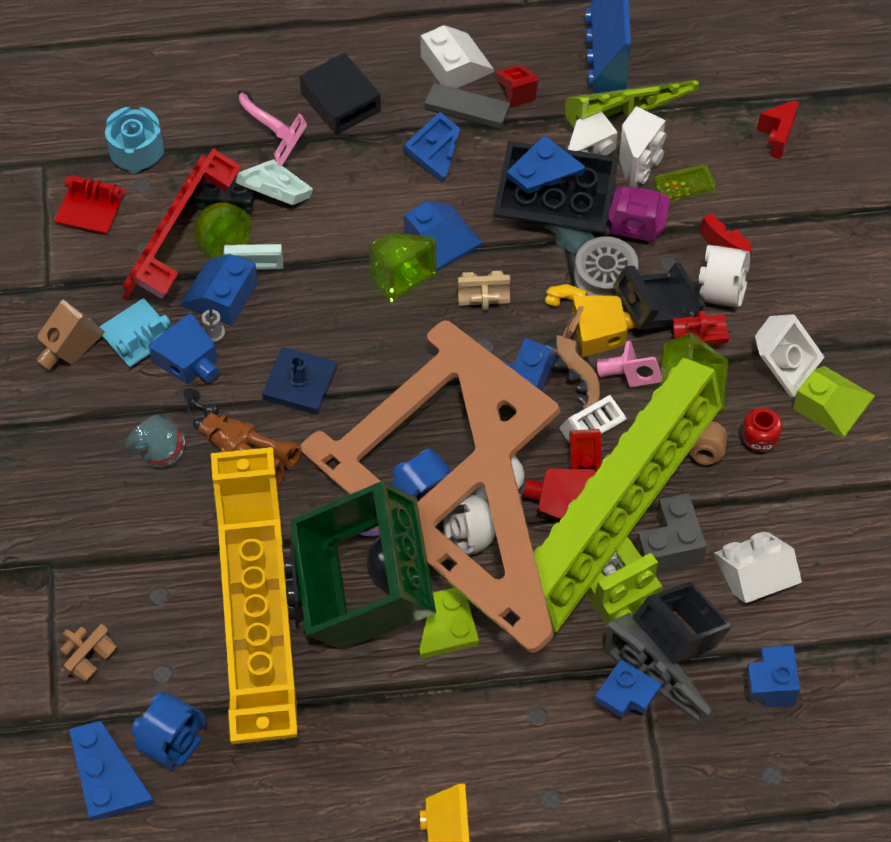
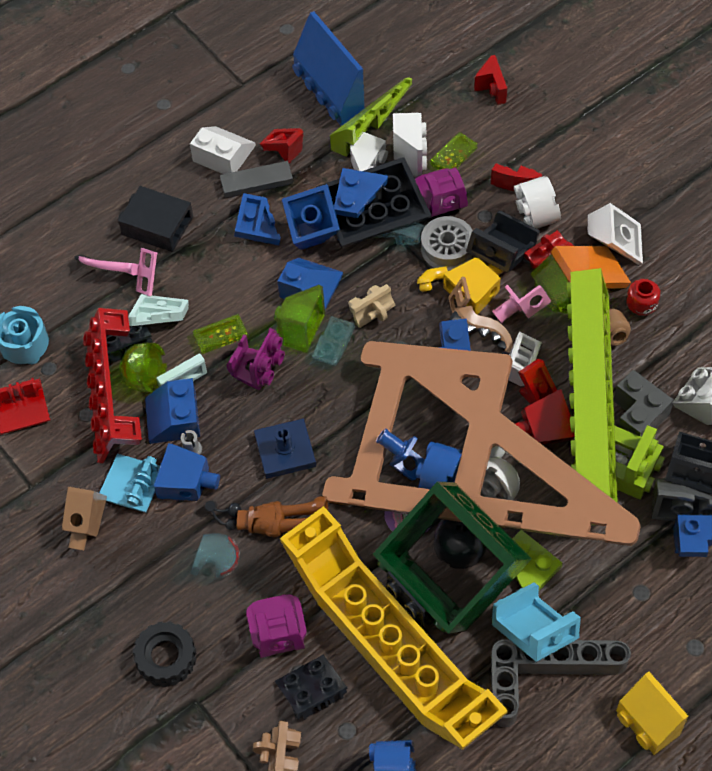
camera: 30 degrees left, 0 degrees up
(55, 526) = (164, 633): none -> black tyre
(159, 612) = (311, 686): none -> black hinge
(167, 538) = (276, 625): none -> magenta piece
(320, 238) = (219, 334): none -> clear neon green tile
(332, 281) = (264, 360): none -> magenta piece
(387, 723) = (573, 664): none -> dark grey beam
(398, 439) = (401, 451): none -> blue bracket
(400, 676) = (533, 623): none -> medium azure panel
(420, 307) = (334, 341): none -> clear light blue slope
(480, 168) = (311, 217): none -> blue slope
(738, 371) = (591, 257): none -> orange tile
(832, 401) = (670, 252): lime slope -> none

